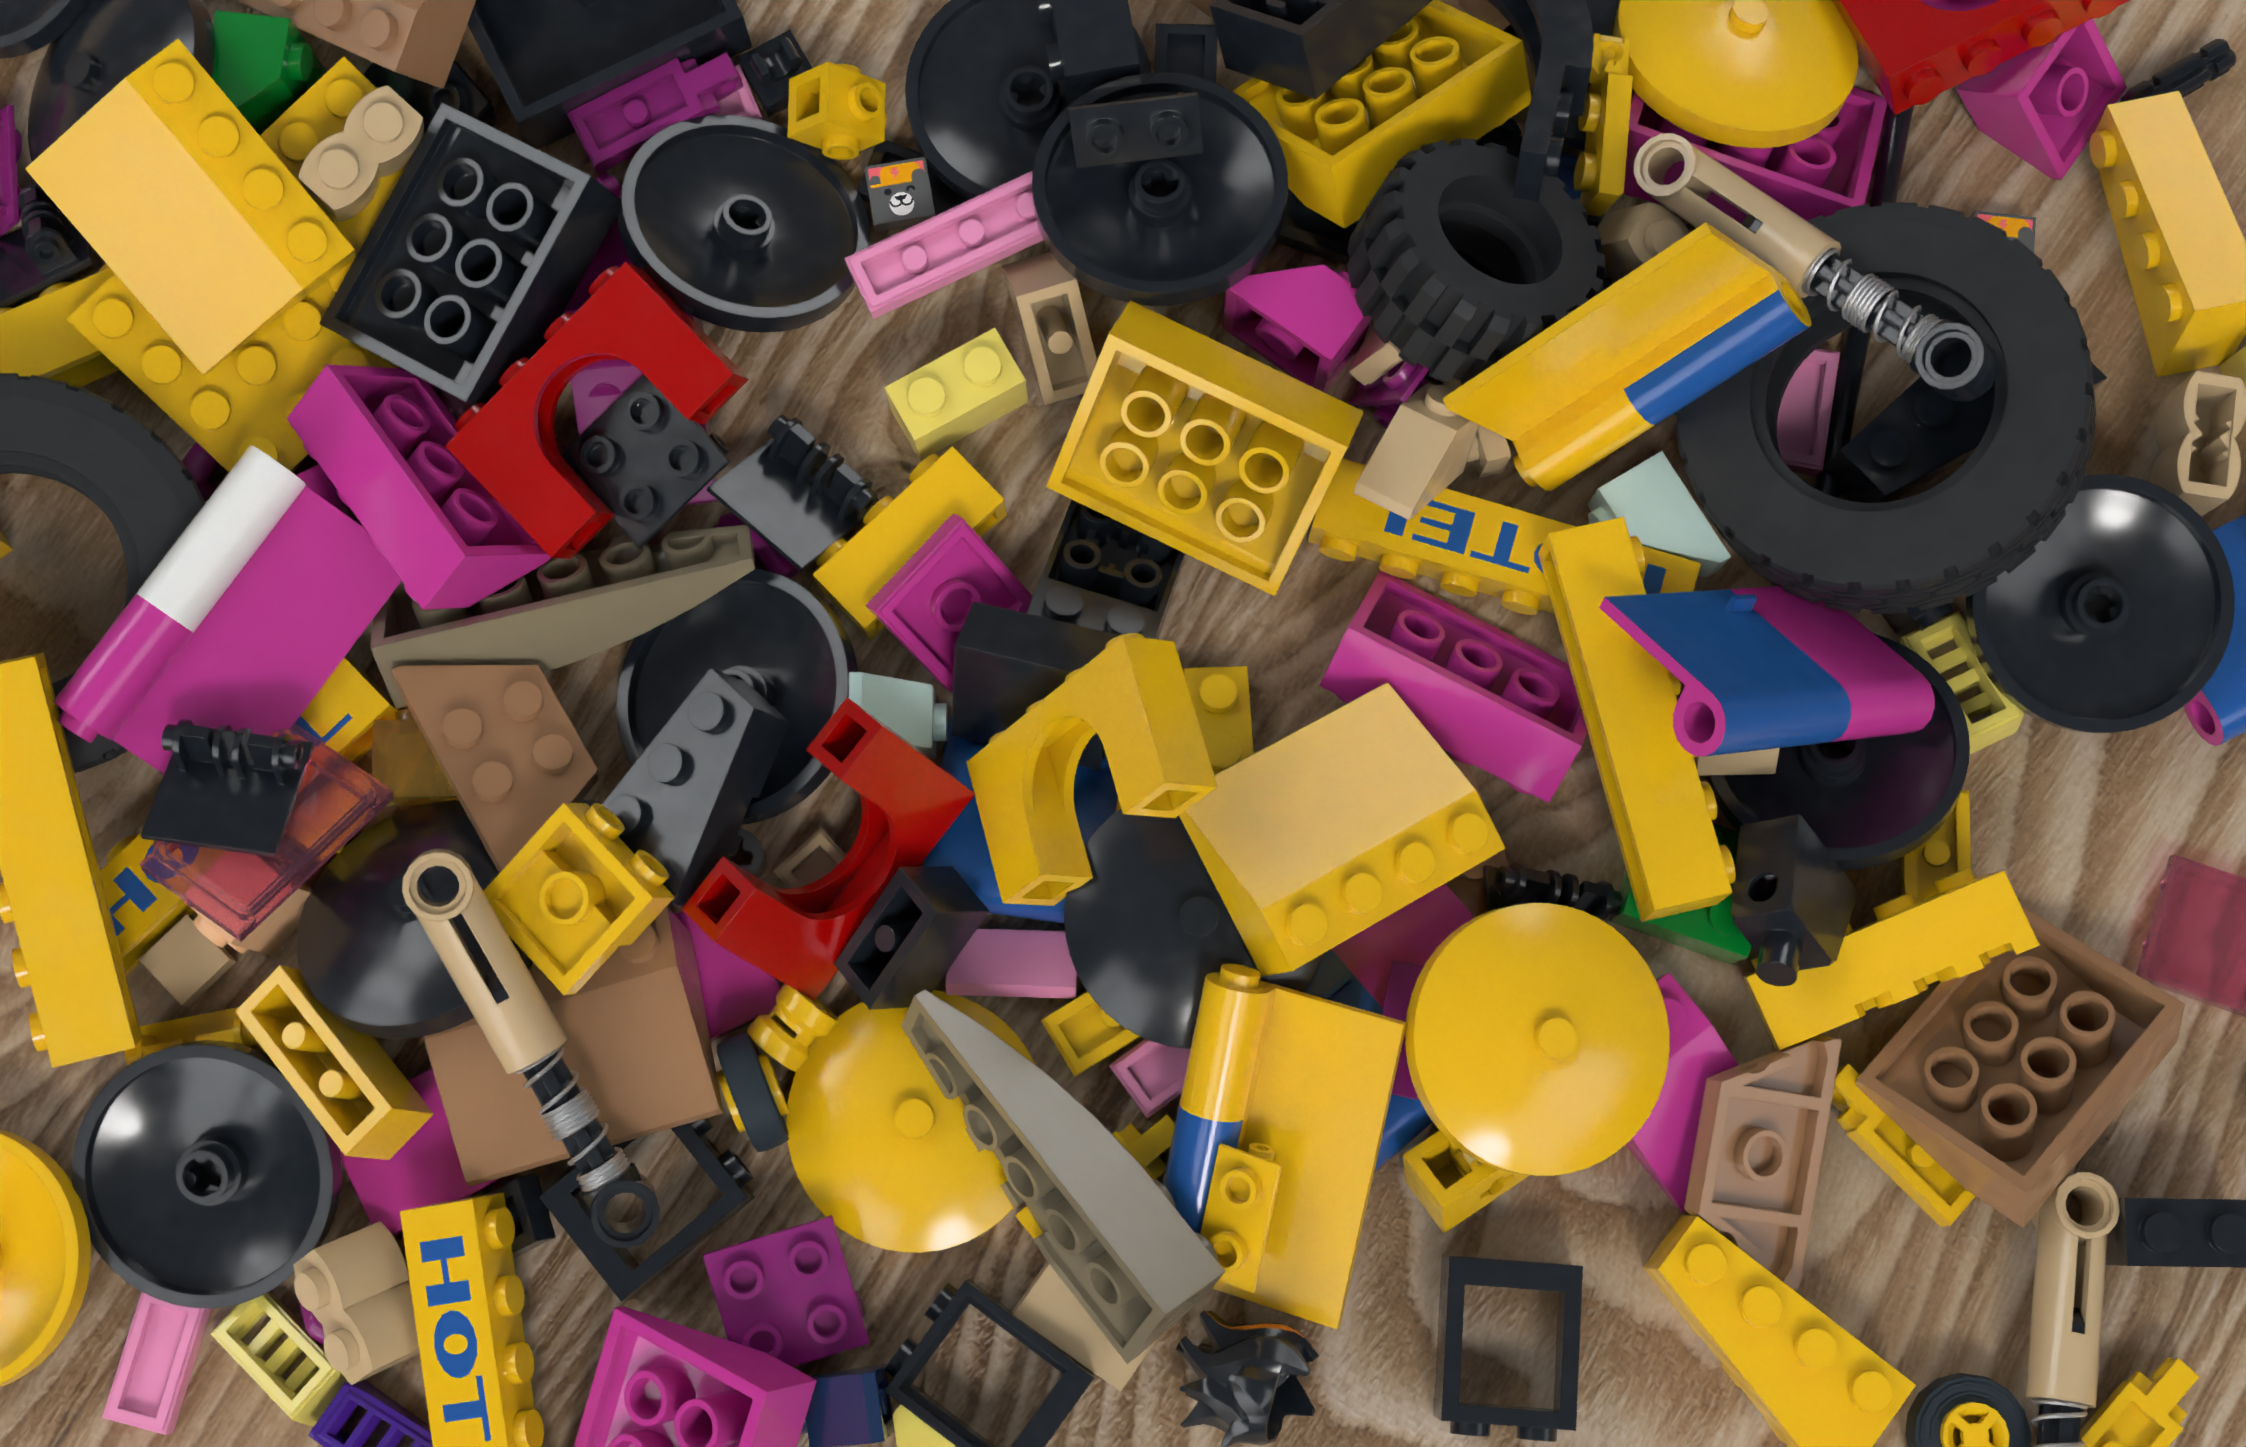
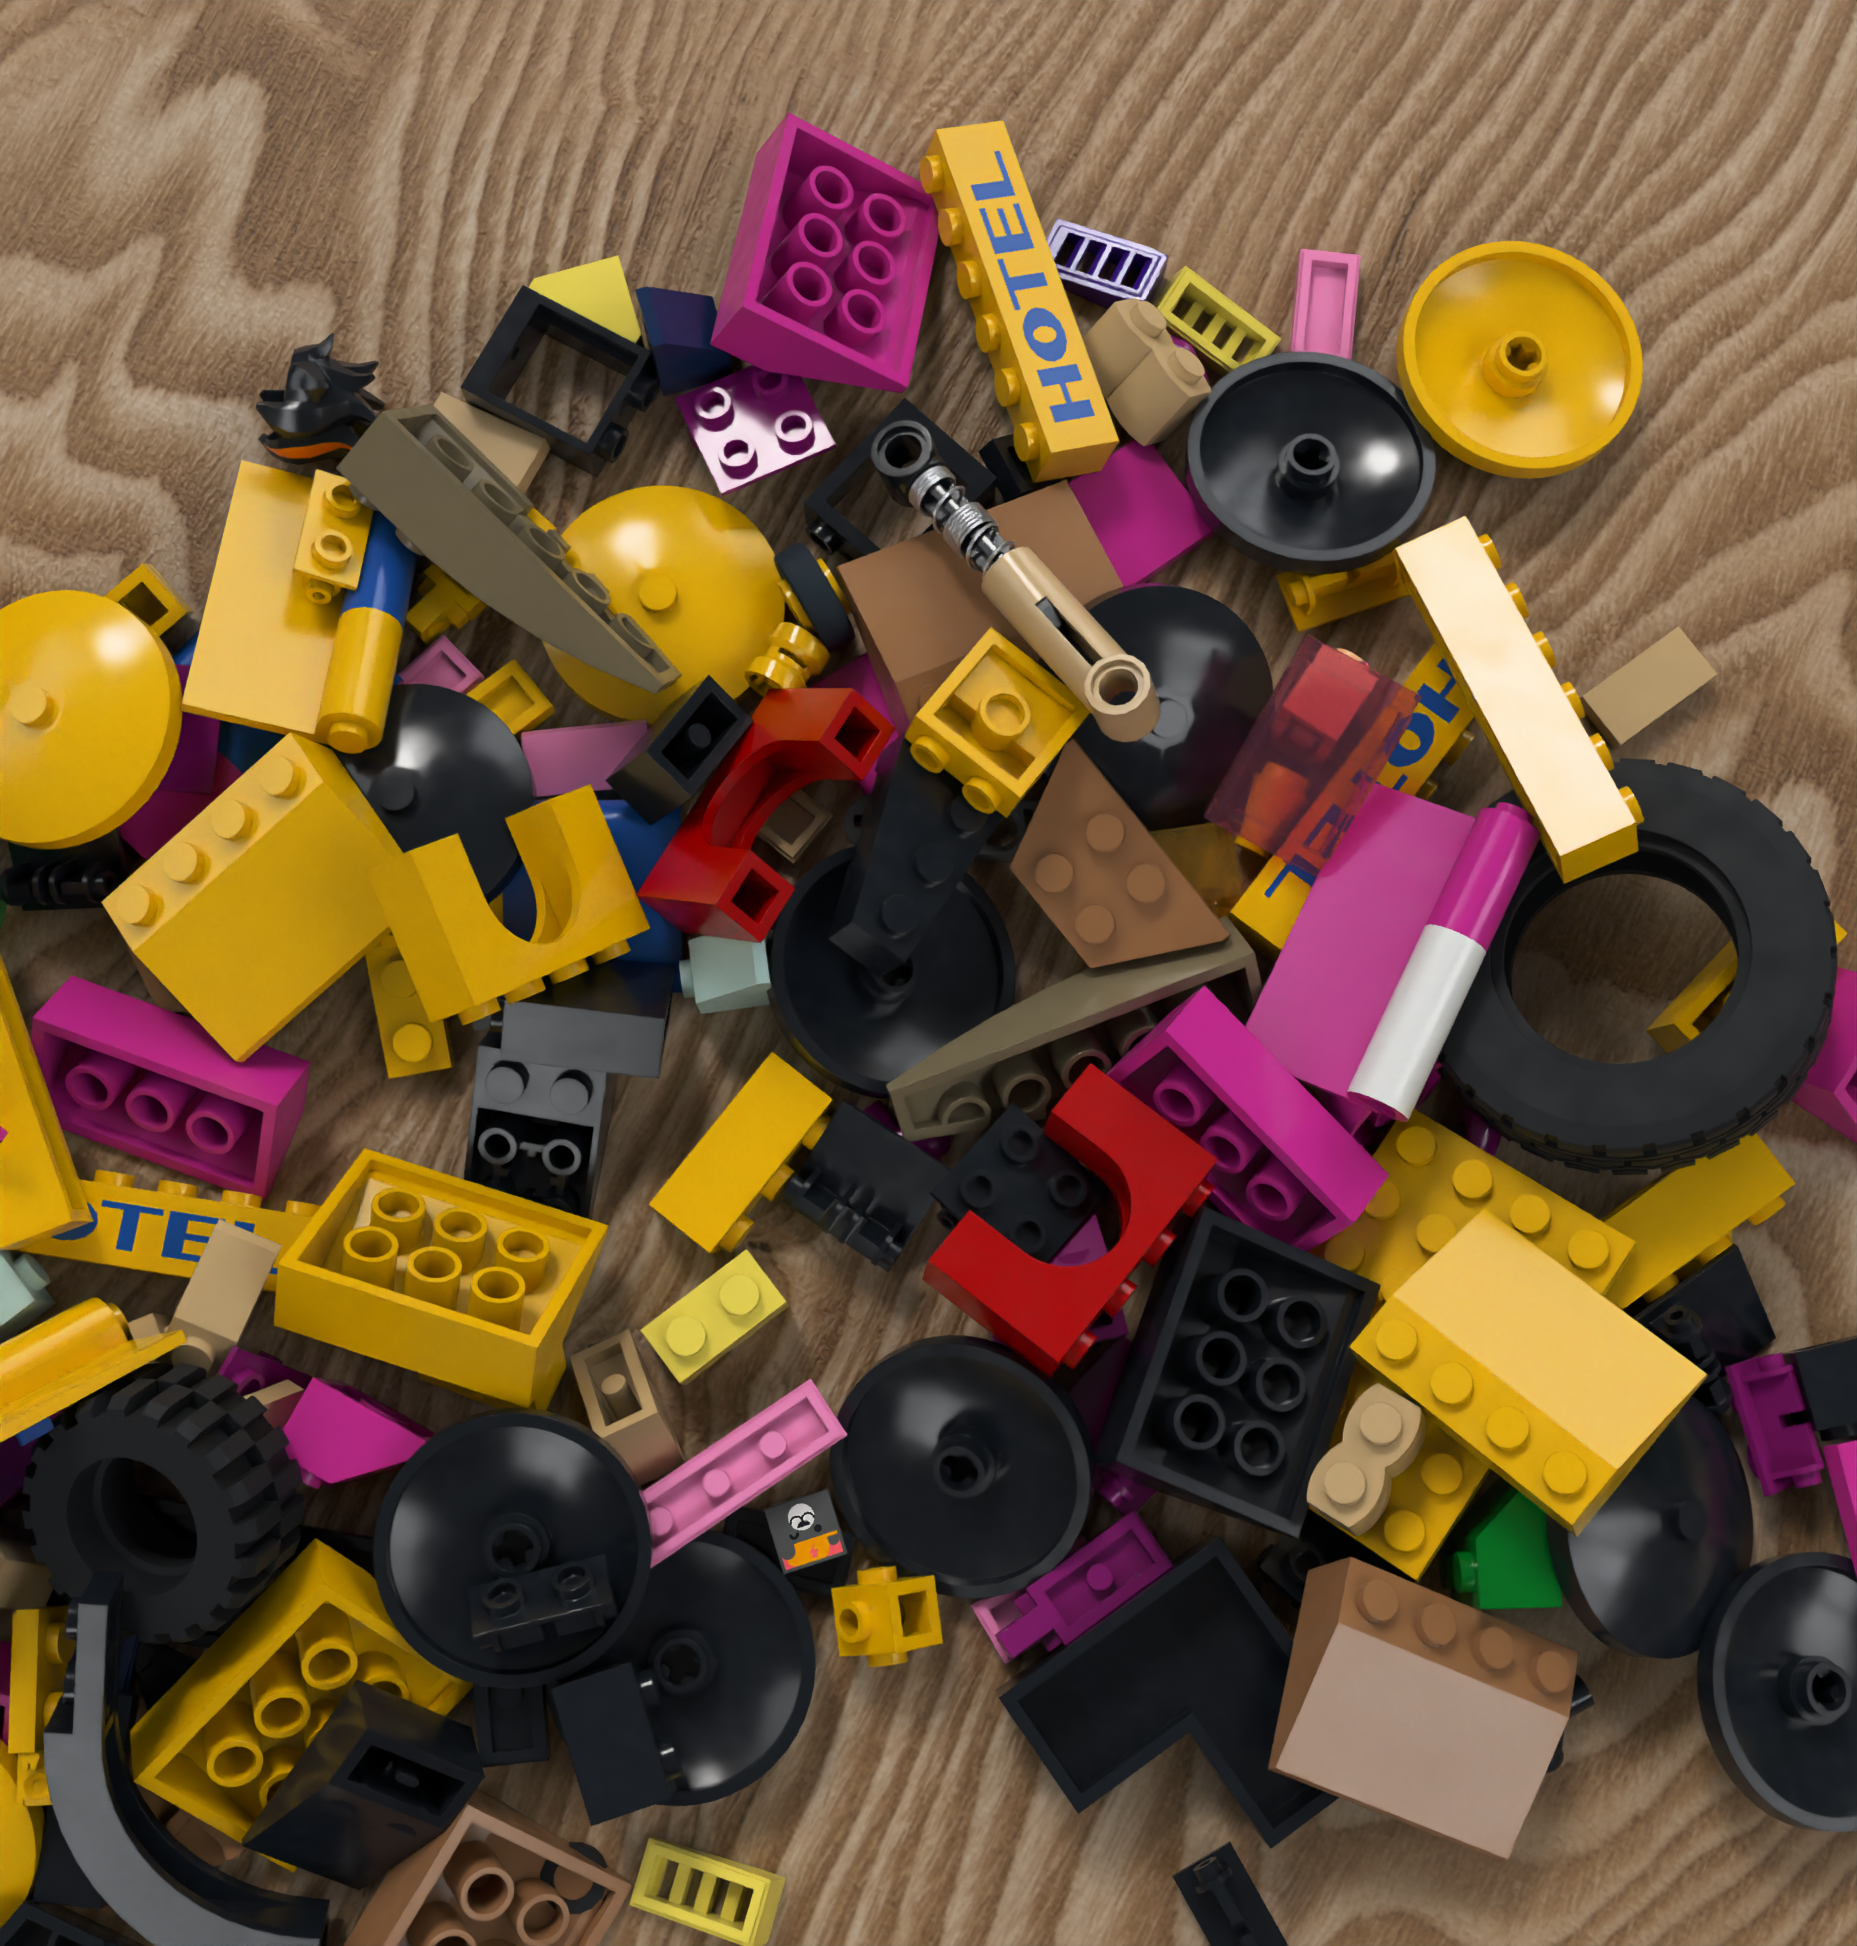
camera: 170 degrees right, 0 degrees up
(186, 961) = (1386, 650): tan tile -> none
(227, 788) = (1356, 783): black hinge -> none
(334, 1069) = (1193, 546): yellow brick -> none
(770, 69) = (962, 1663): black tile -> none
(934, 593) = (697, 1094): dark pink tile -> none
(1475, 1418) = (93, 534): black window -> none

